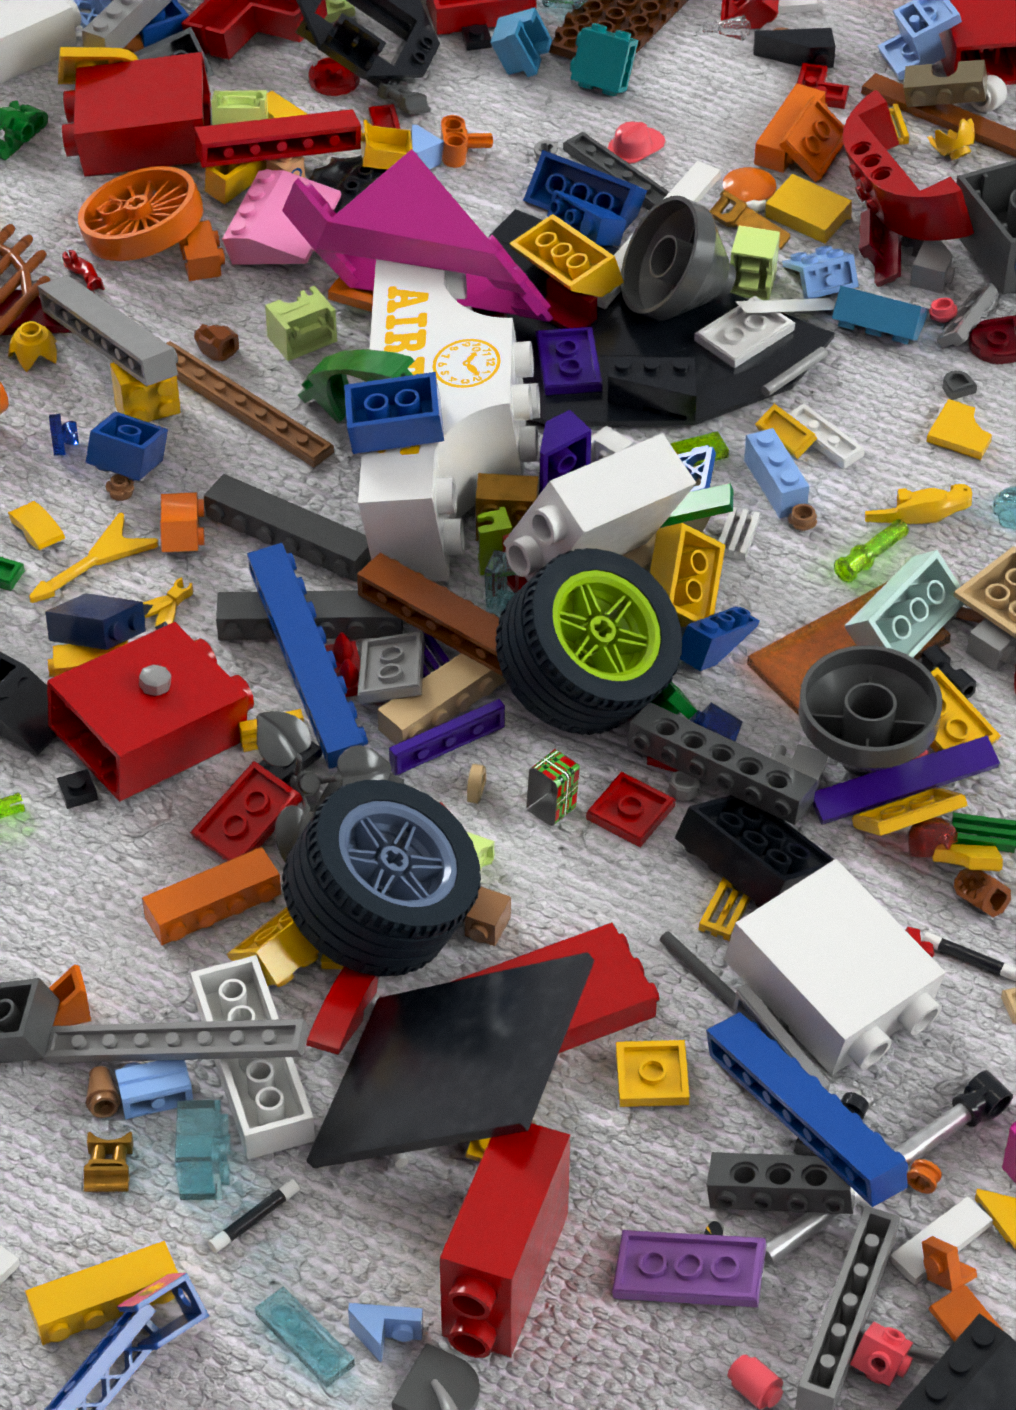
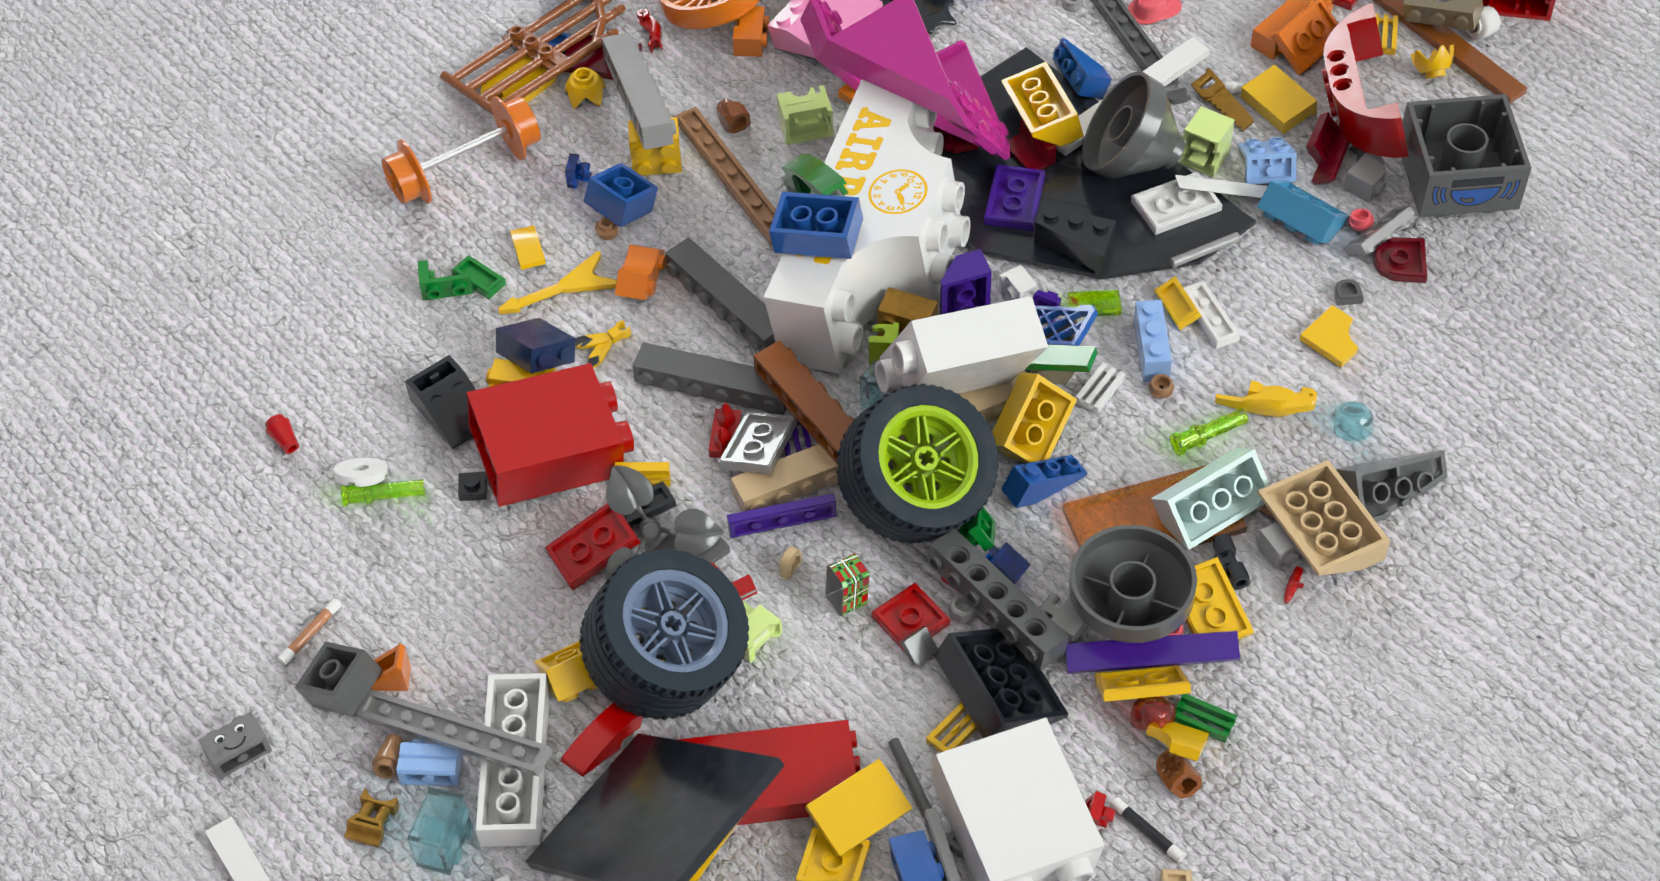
camera: 20 degrees right, 5 degrees up
(155, 680) = (551, 412): light grey tile -> none
(211, 896) = (536, 608): orange brick -> none
(305, 652) = (689, 414): blue brick -> none
(488, 916) = (752, 685): medium nougat brick -> none
(584, 183) = (1092, 38): blue slope -> none
(654, 833) = (919, 646): none -> dark grey tile
(662, 1007) = (858, 808): none -> yellow tile
(749, 184) = (1236, 65): orange dish -> none

